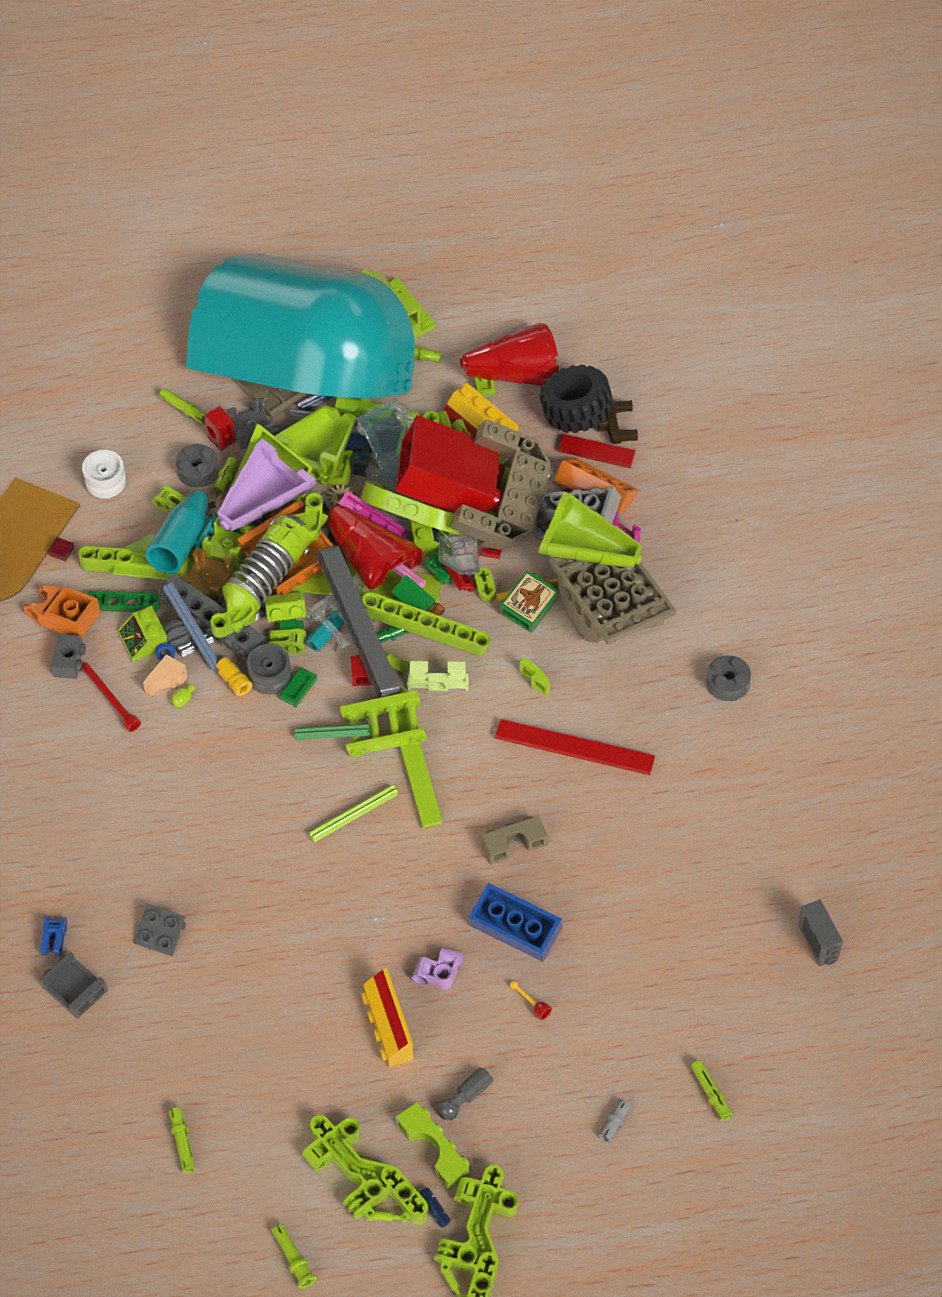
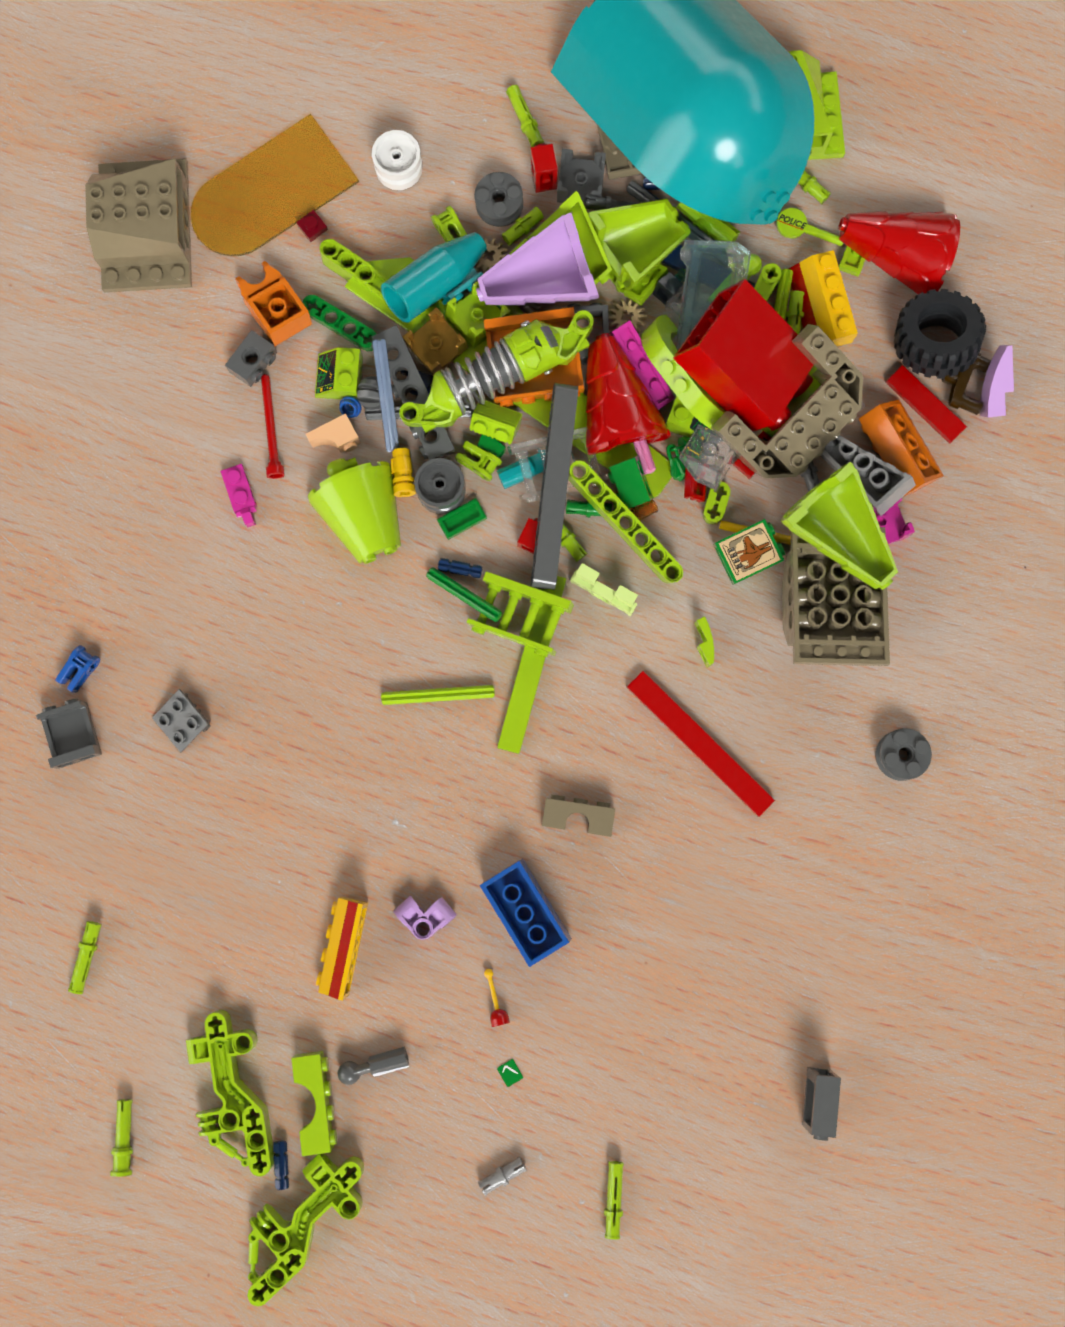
camera: 30 degrees right, 25 degrees up
(112, 752) = (240, 493): none -> dark pink hinge
(214, 717) = (360, 509): none -> lime cone
(317, 719) = (460, 568): none -> dark blue axle
(427, 383) = (793, 223): none -> lime piece
(574, 1047) = (510, 1073): none -> green sticker
(638, 411) = (997, 382): none -> lavender slope

